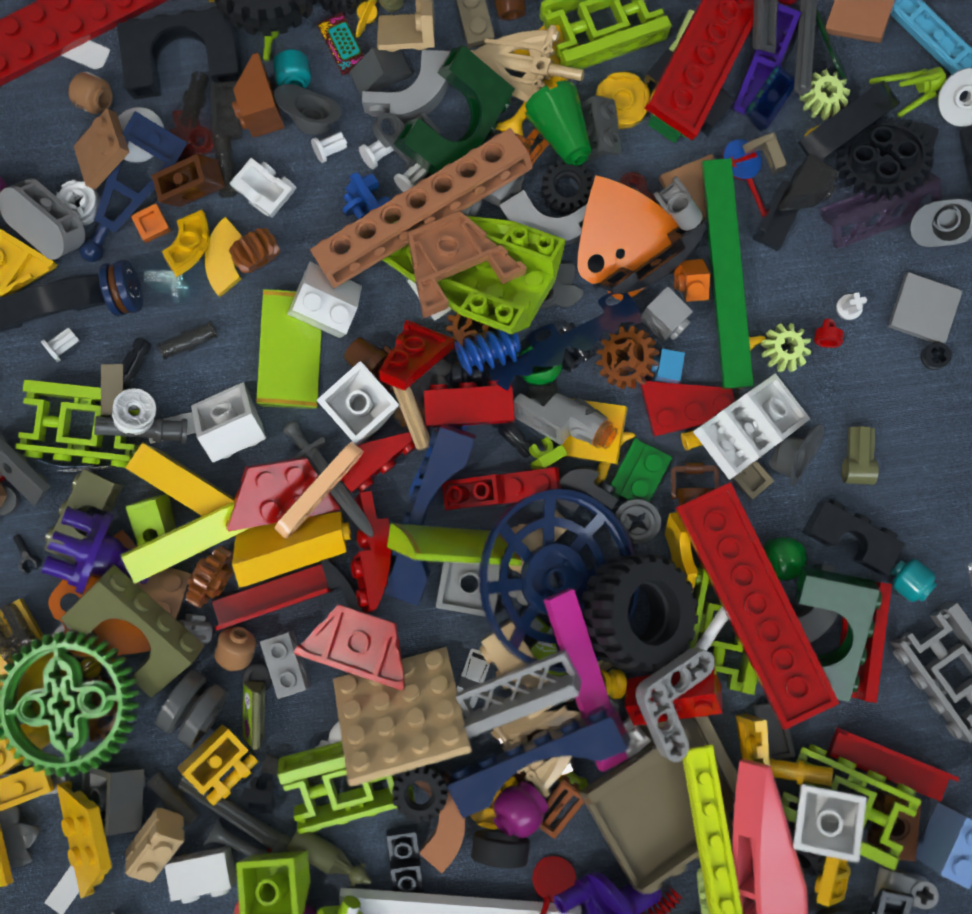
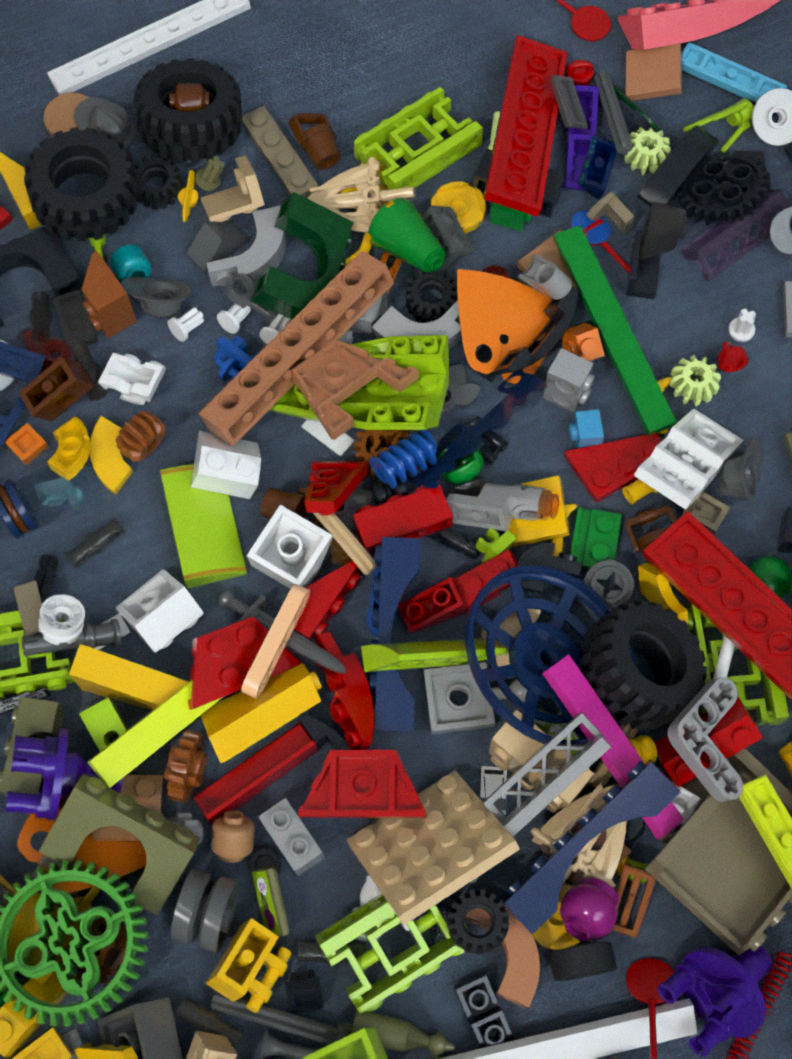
camera: 15 degrees left, 15 degrees down
(340, 42) = (170, 230): tile -> none
(614, 355) = (543, 428): dark orange gear -> none

